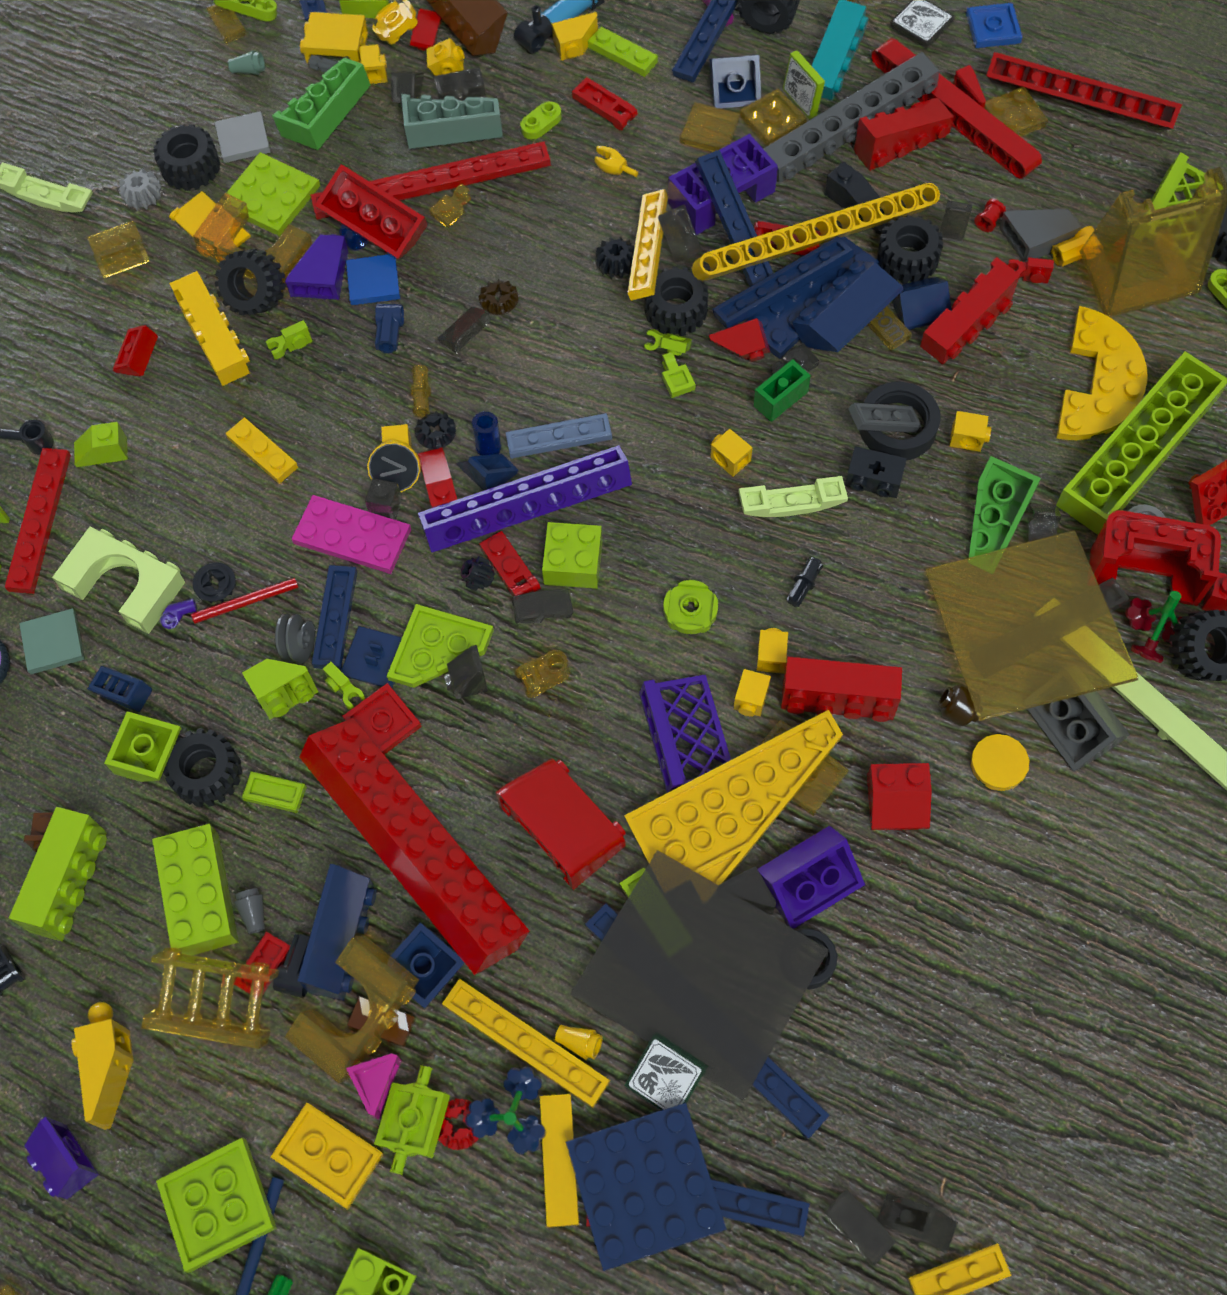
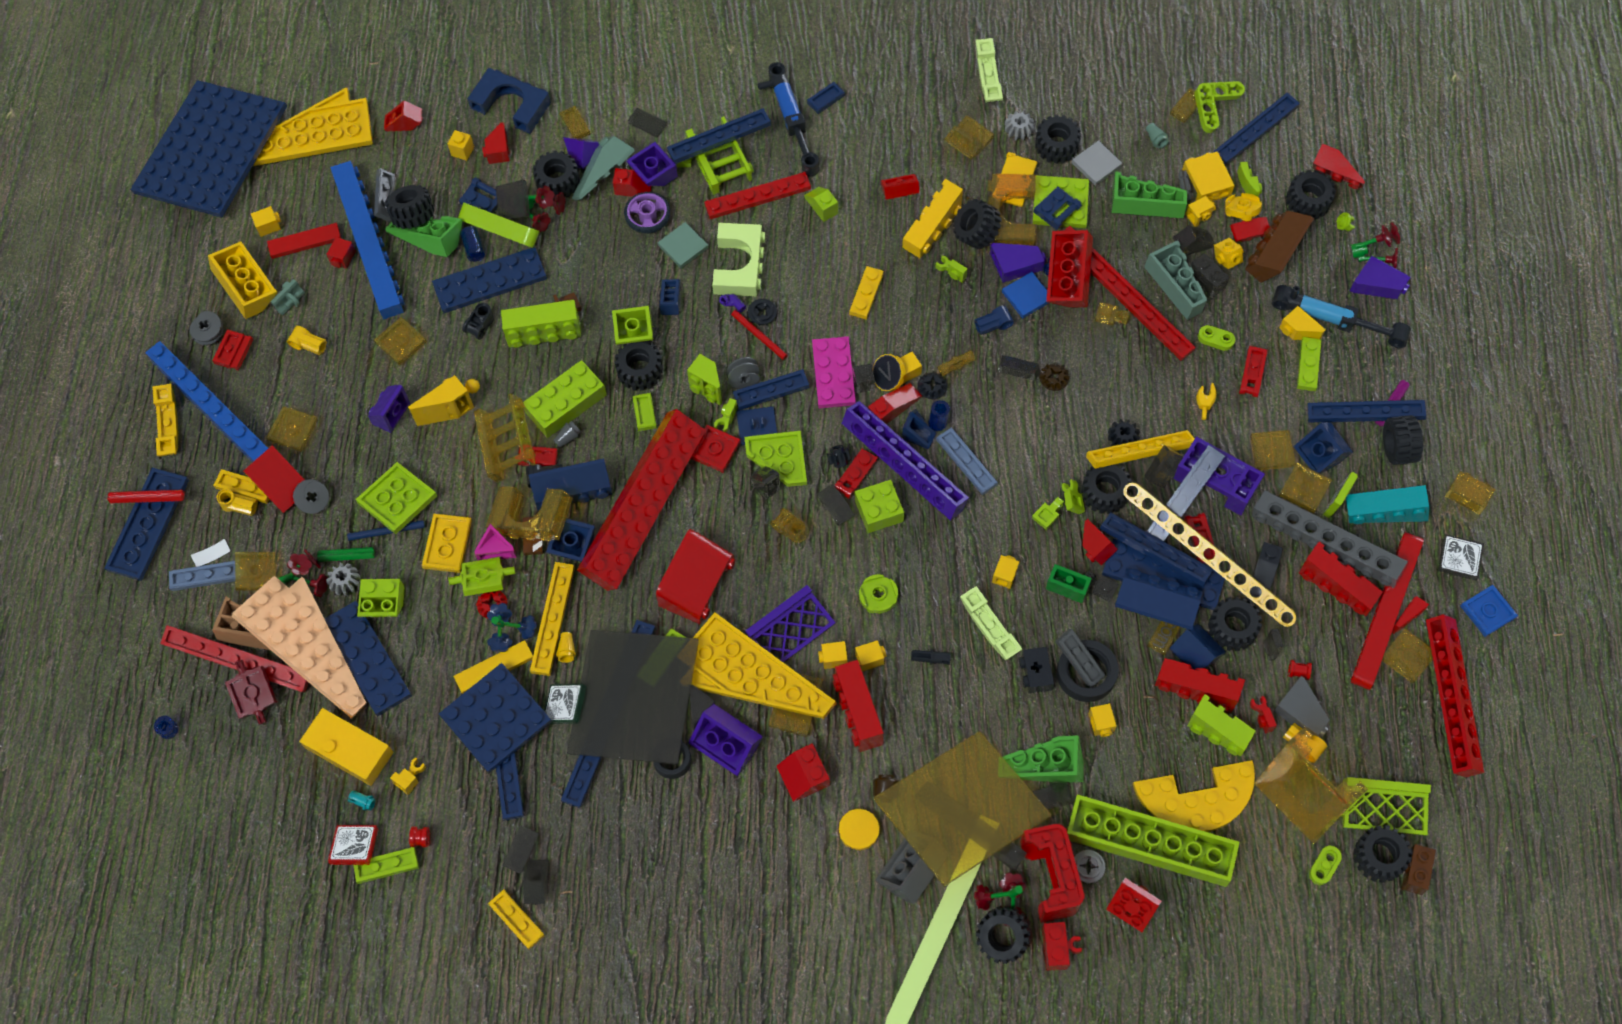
camera: 65 degrees right, 0 degrees up
(273, 199) = (1053, 204): none -> dark blue plate
(1028, 317) = (1220, 727): none -> lime wedge

